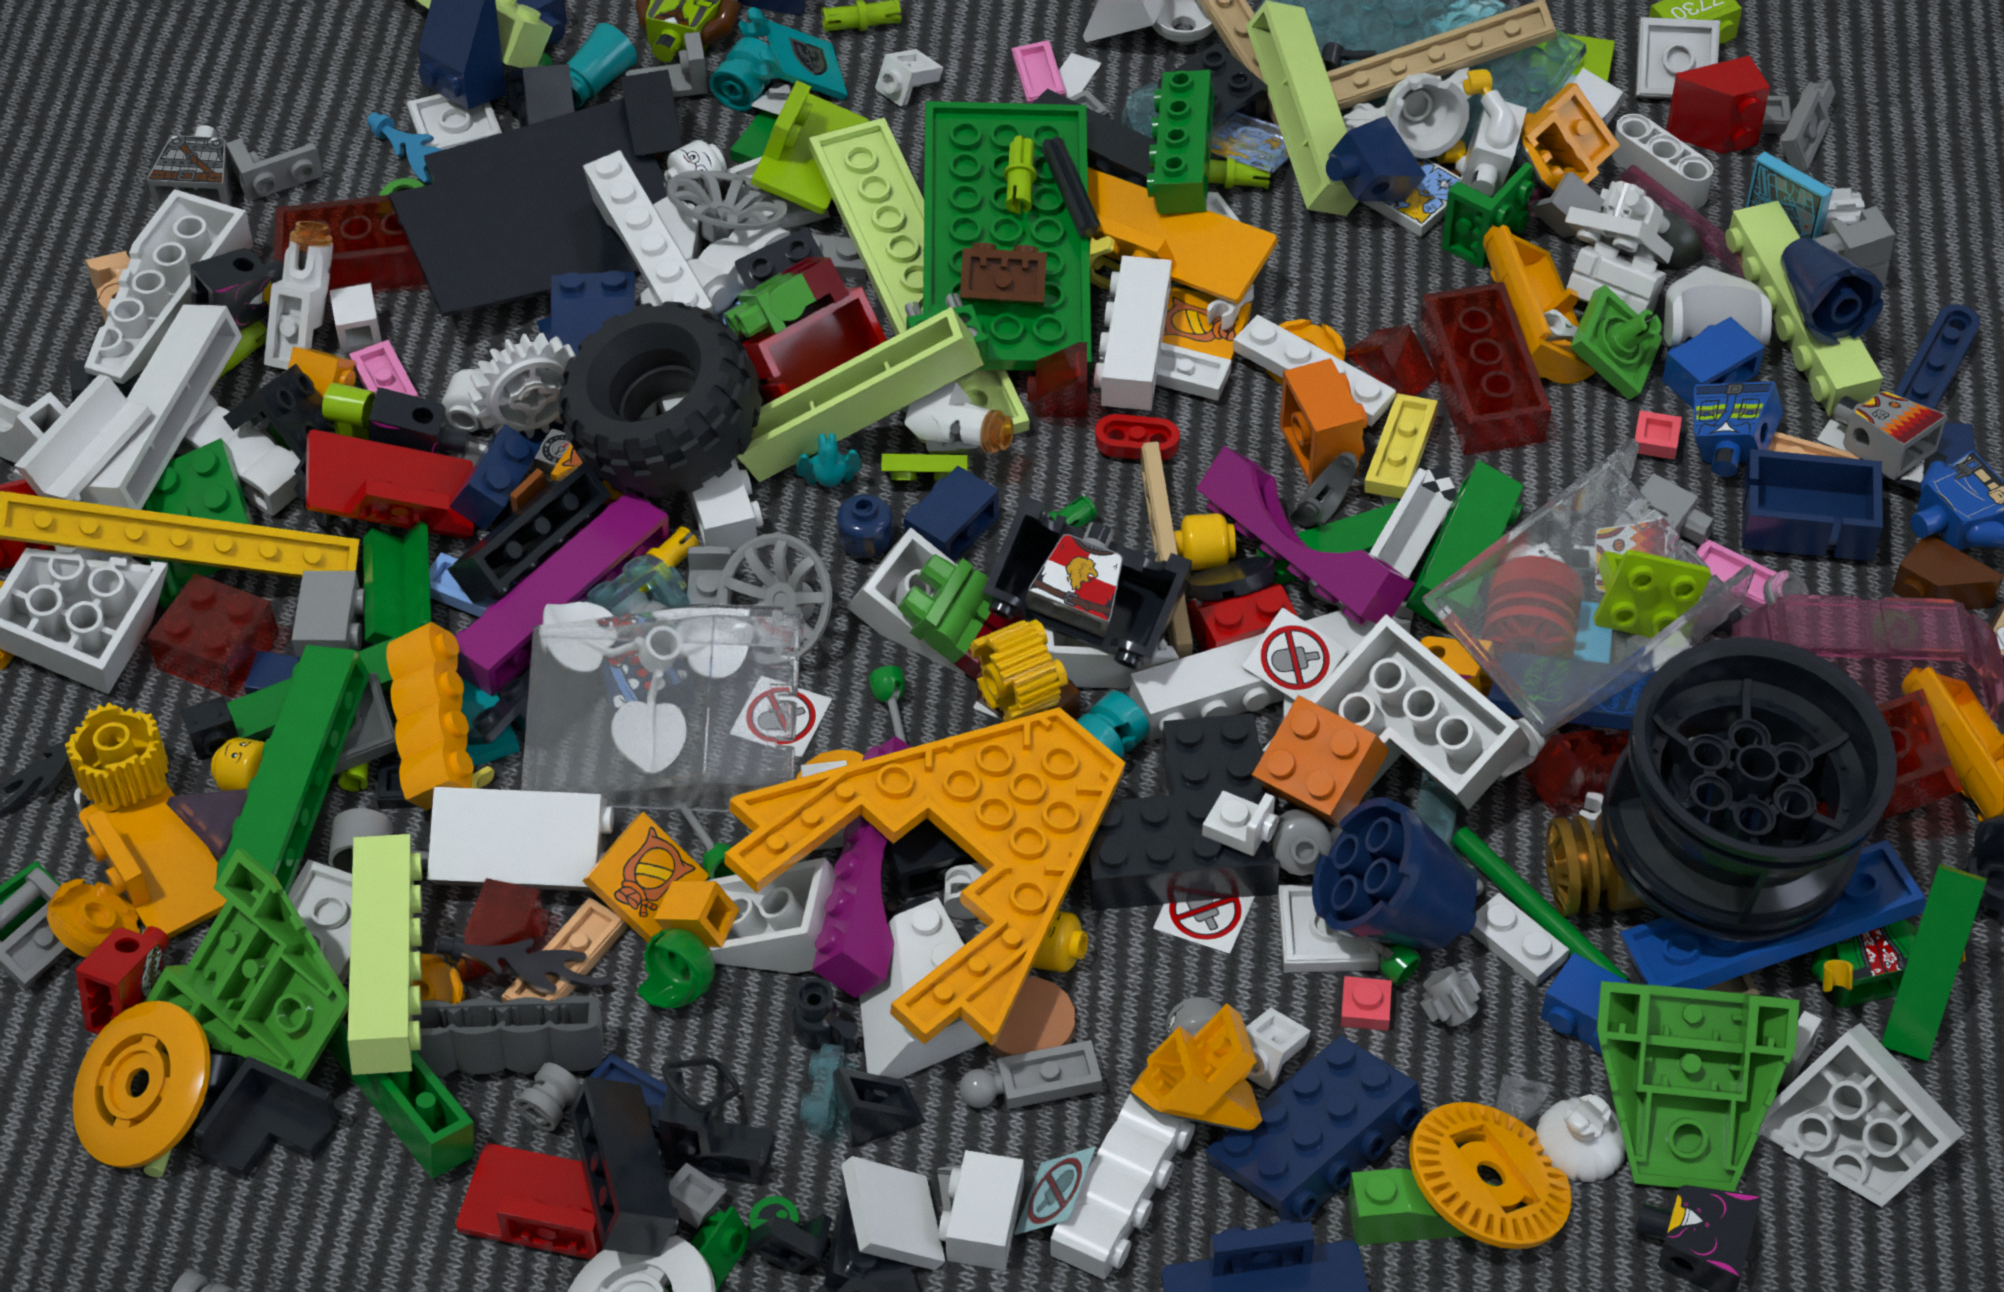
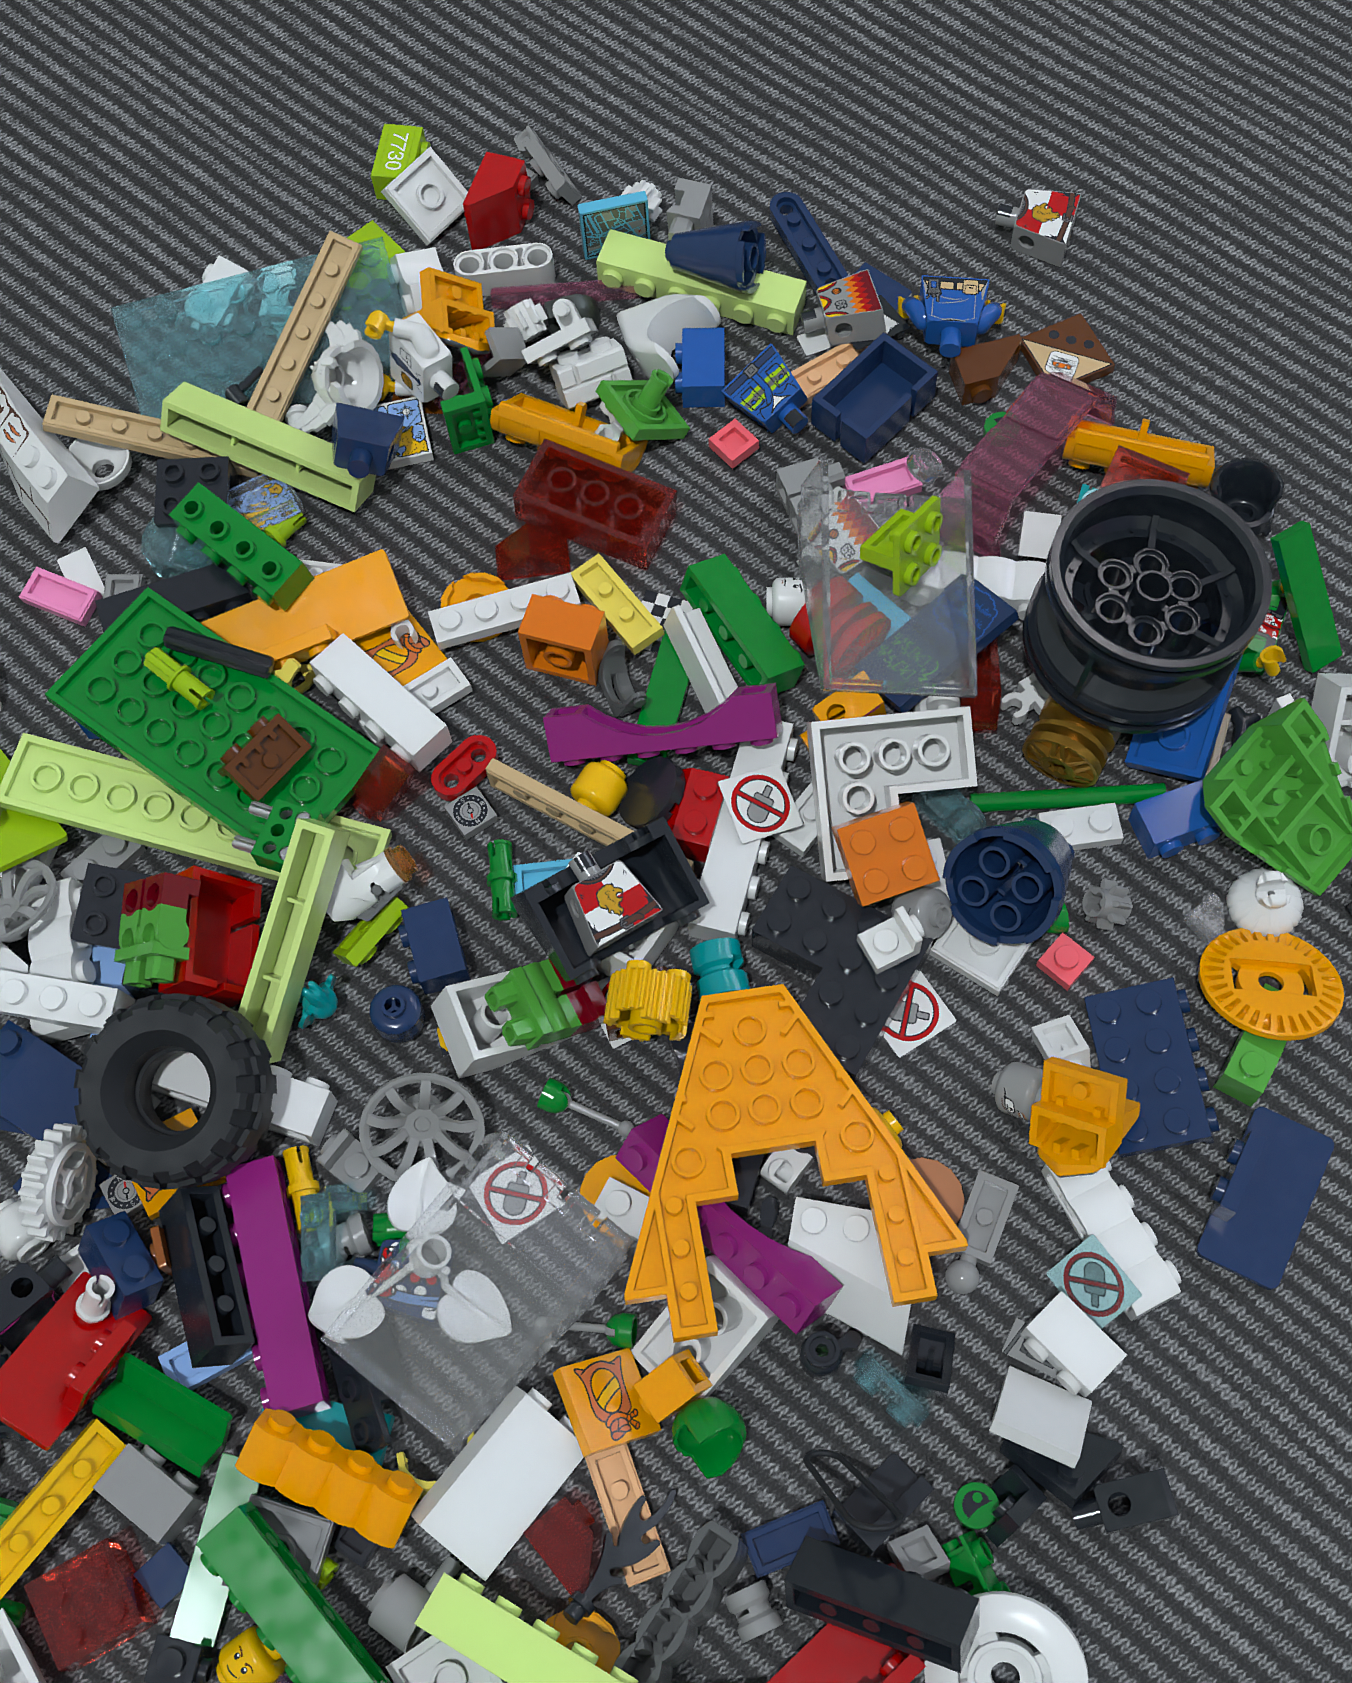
camera: 50 degrees left, 15 degrees up
(449, 475) = (95, 1301): none -> white pin
(1100, 470) = (471, 813): none -> light grey tile

